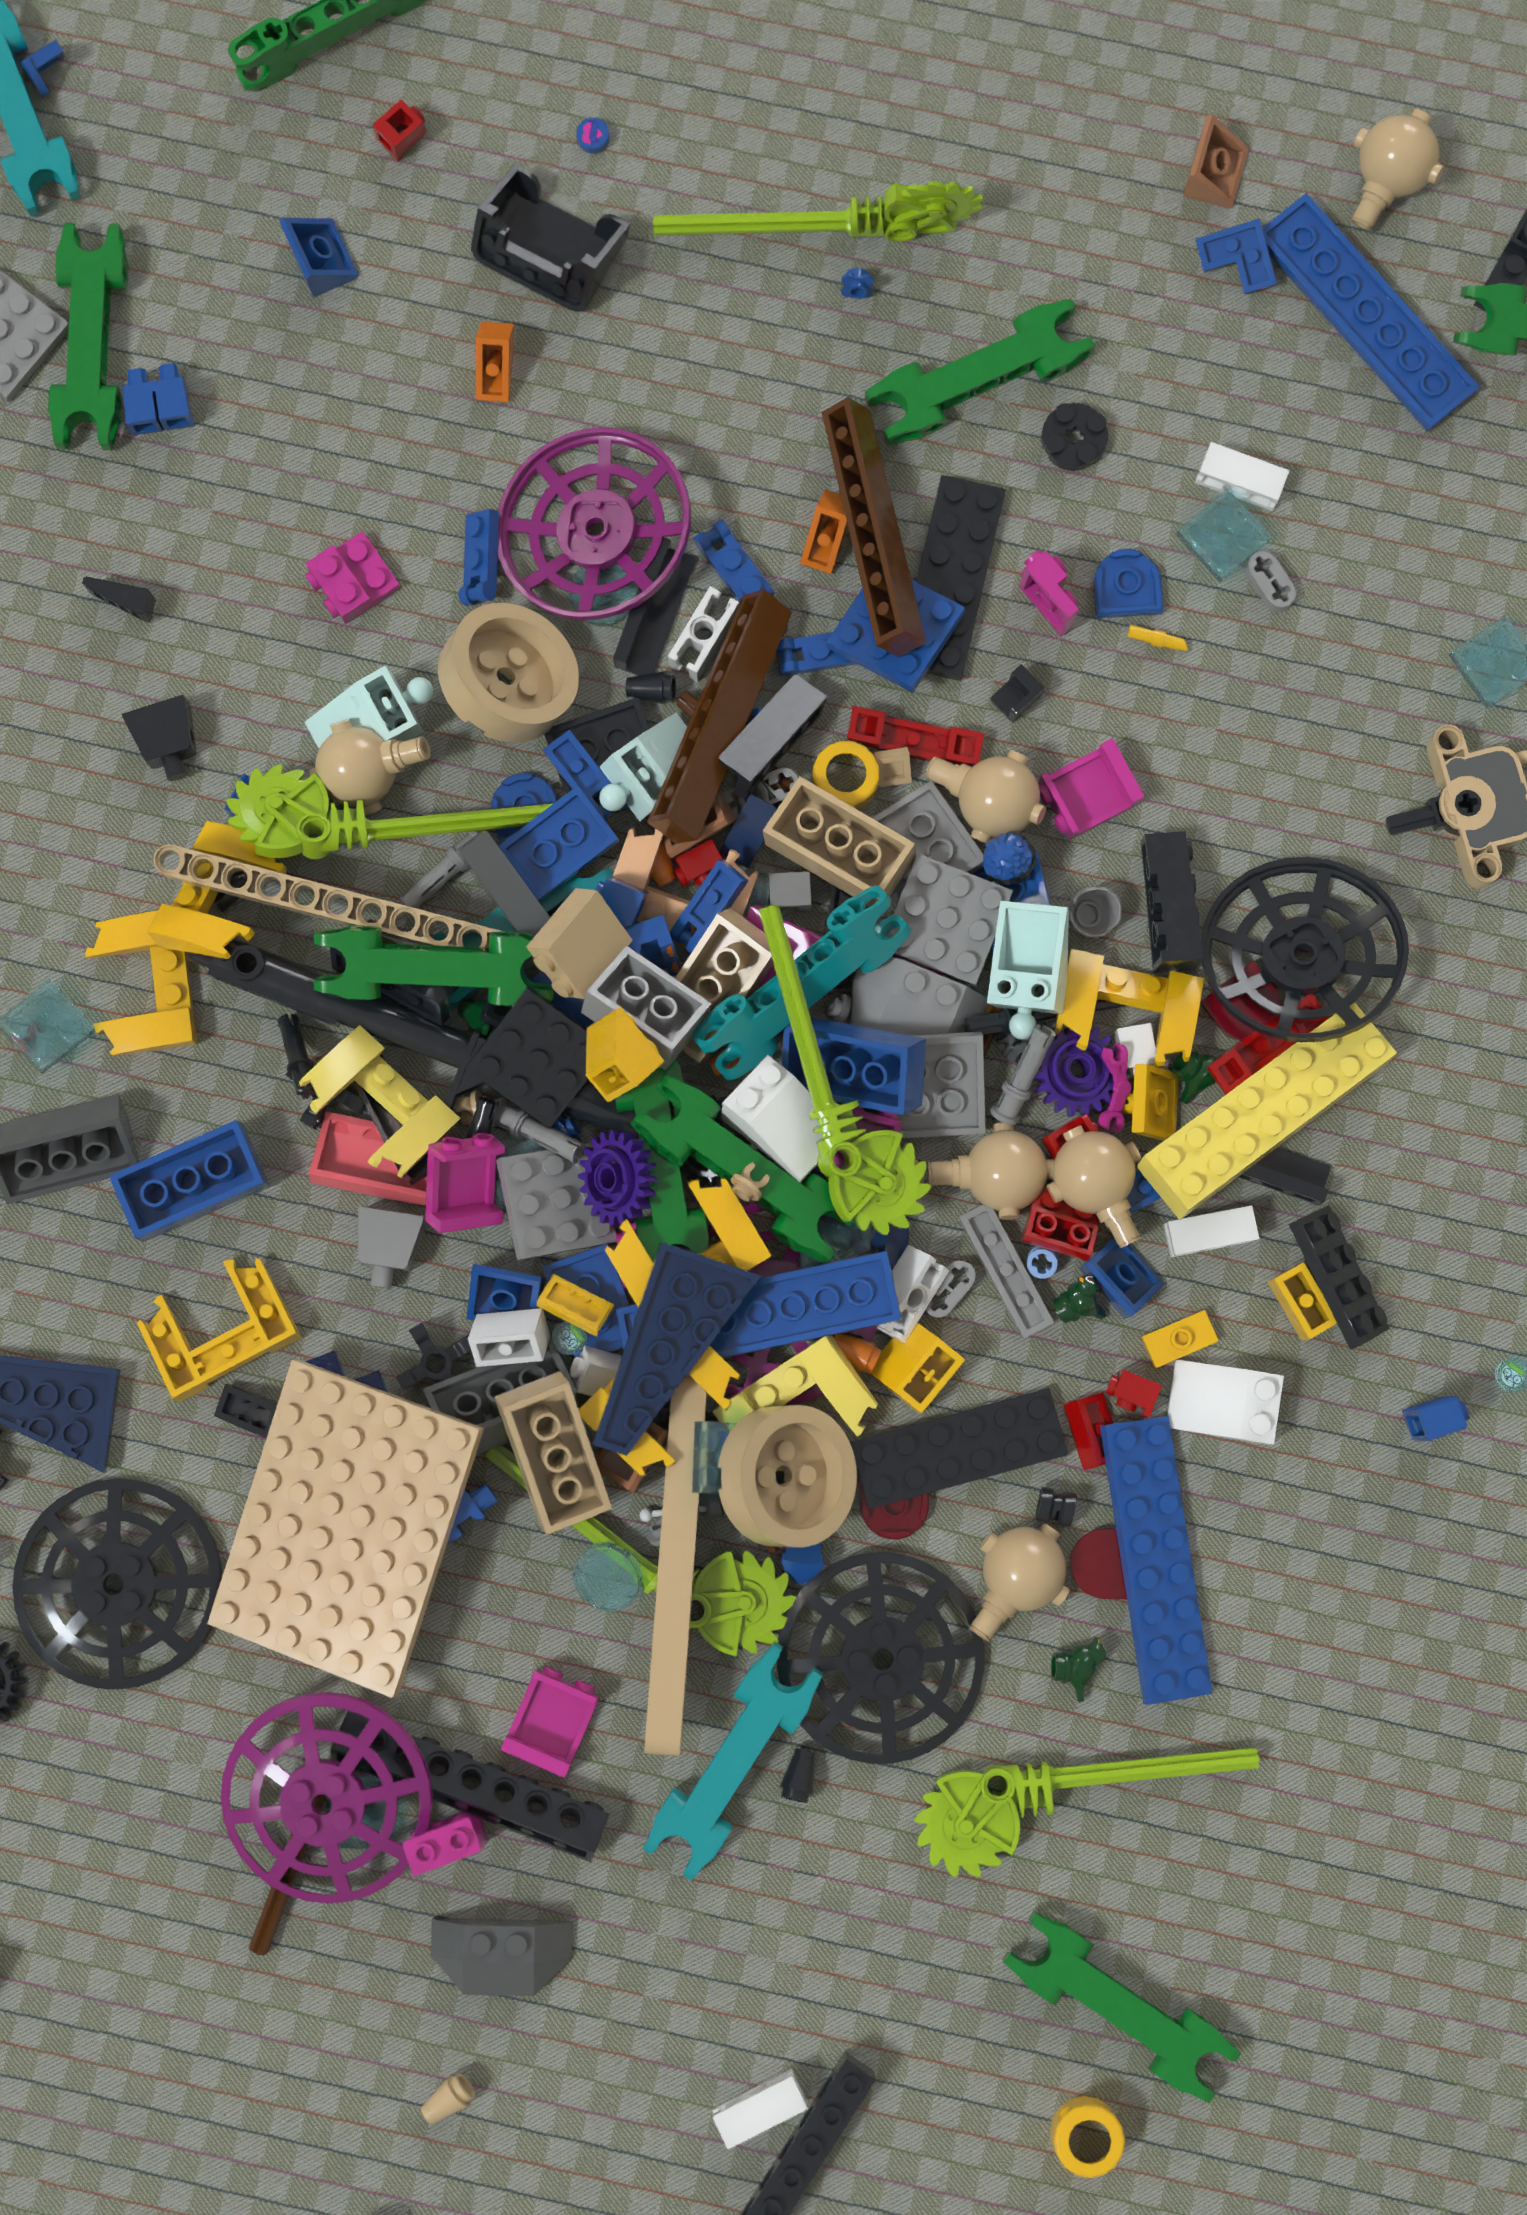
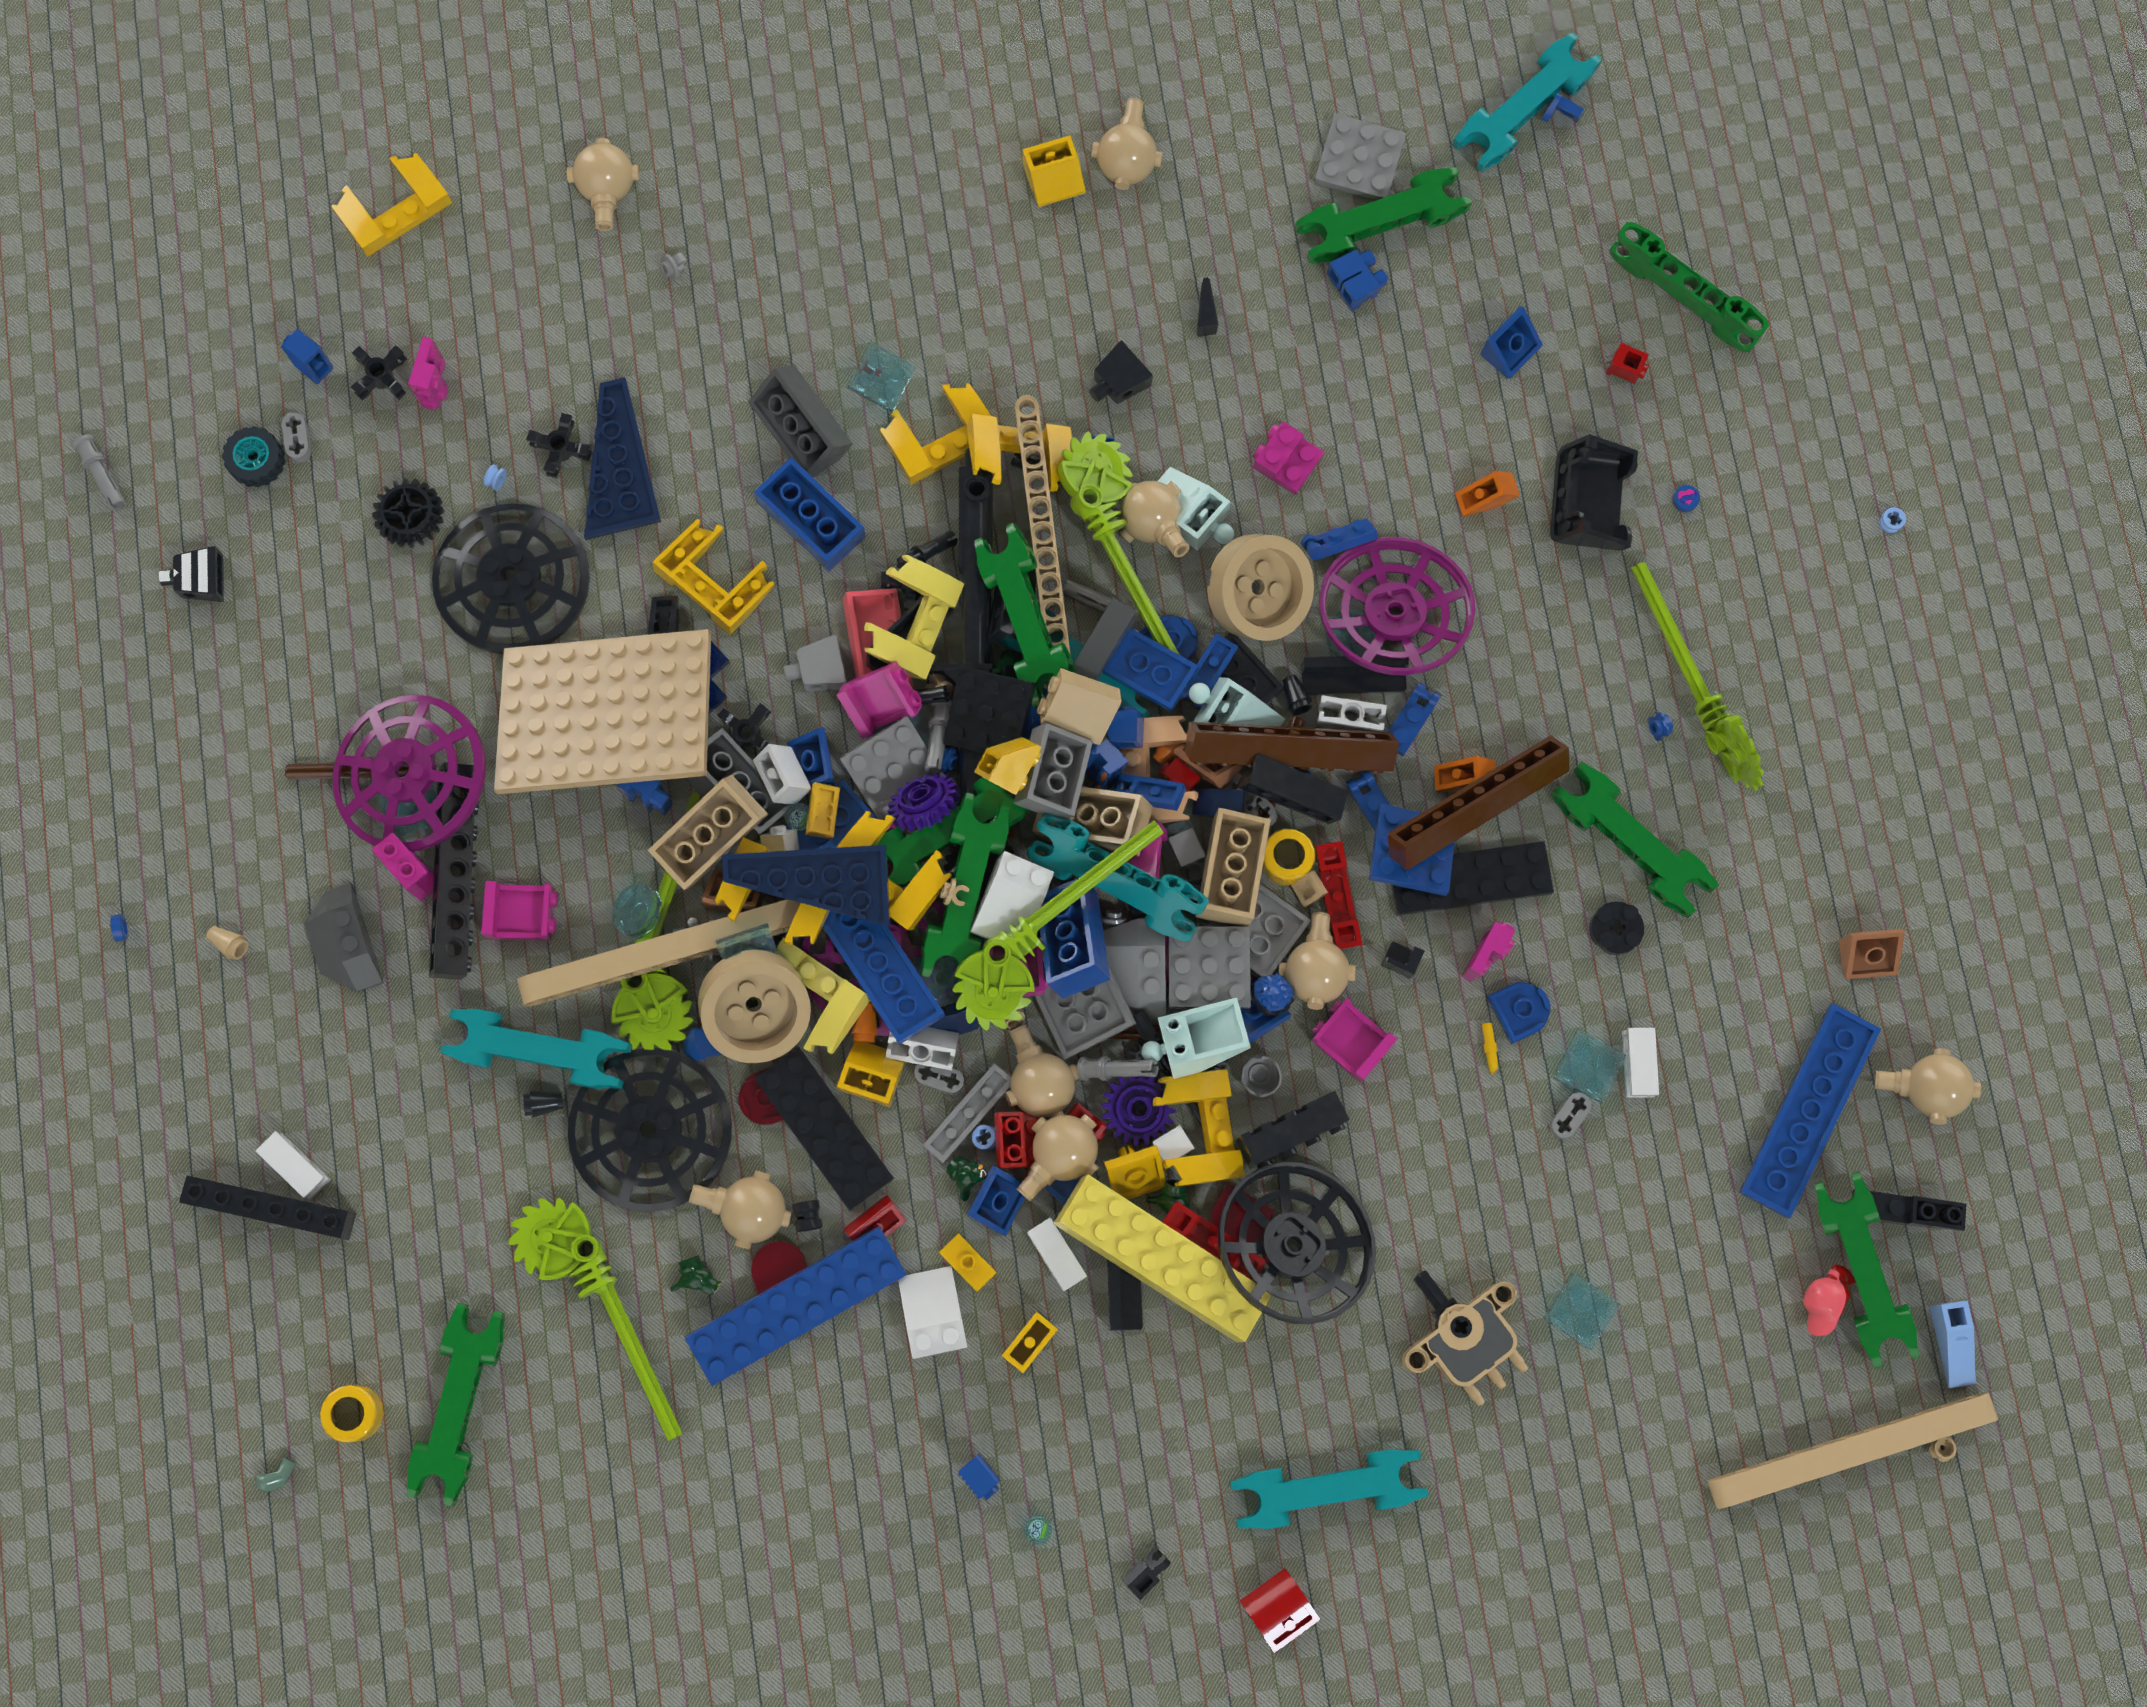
camera: 65 degrees right, 5 degrees down
(1121, 1087) = (1149, 1136): dark pink piece -> none
(1133, 1392) = (913, 1241): red brick -> none
(1242, 245) = (1817, 998): blue plate -> none
(1339, 1277) = (1058, 1363): black plate -> none

